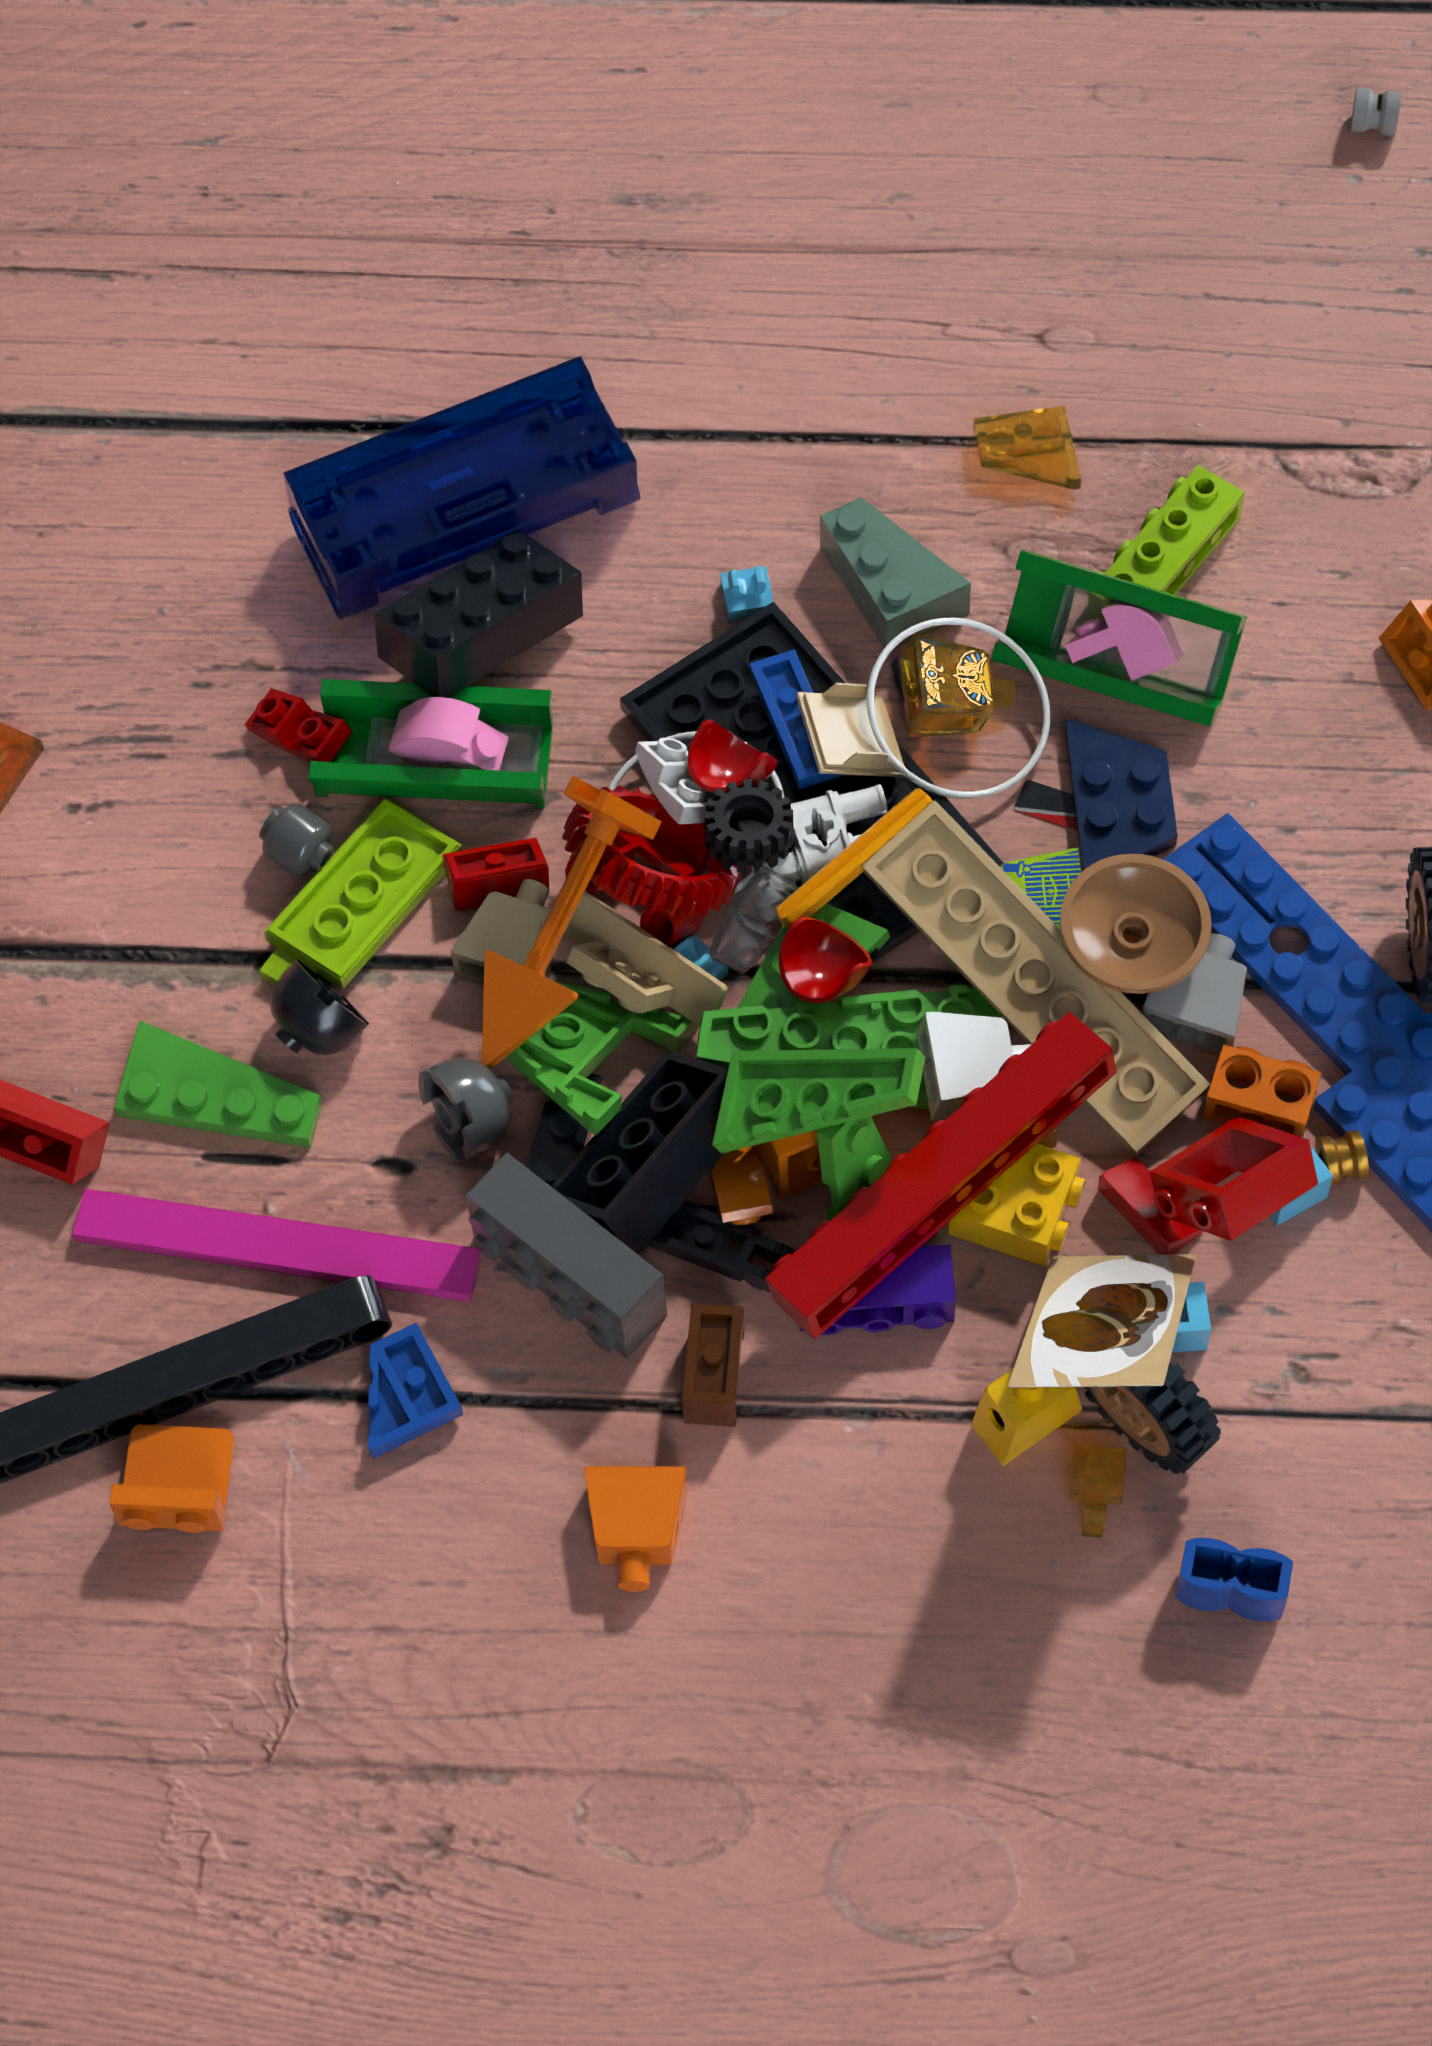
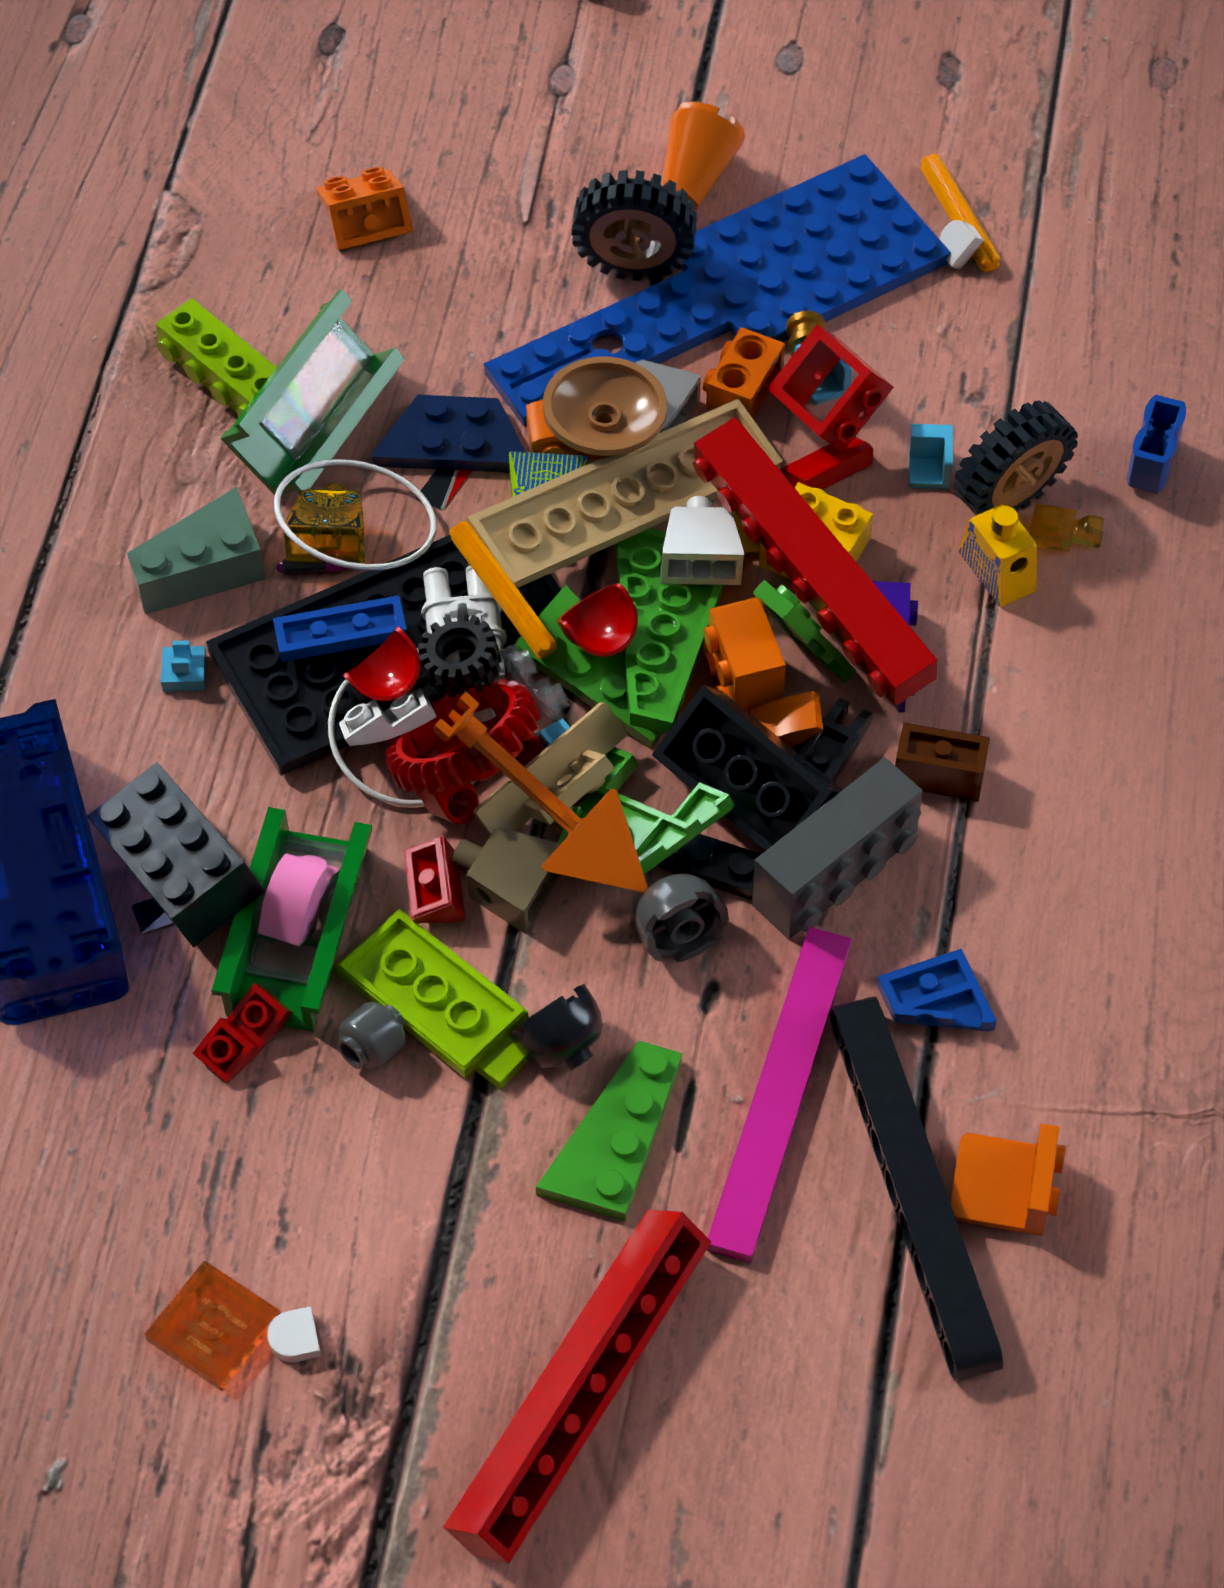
camera: 85 degrees left, 5 degrees down
(636, 1518) = (1072, 833): orange torso -> none
(808, 1090) = (745, 623): bright green wing -> none
(842, 731) = (365, 590): tan piece -> none
(1029, 445) = (91, 444): clear yellow wing -> none
(1104, 1321) = (976, 451): sticker -> none
(1140, 634) = (321, 380): bright pink brick -> none

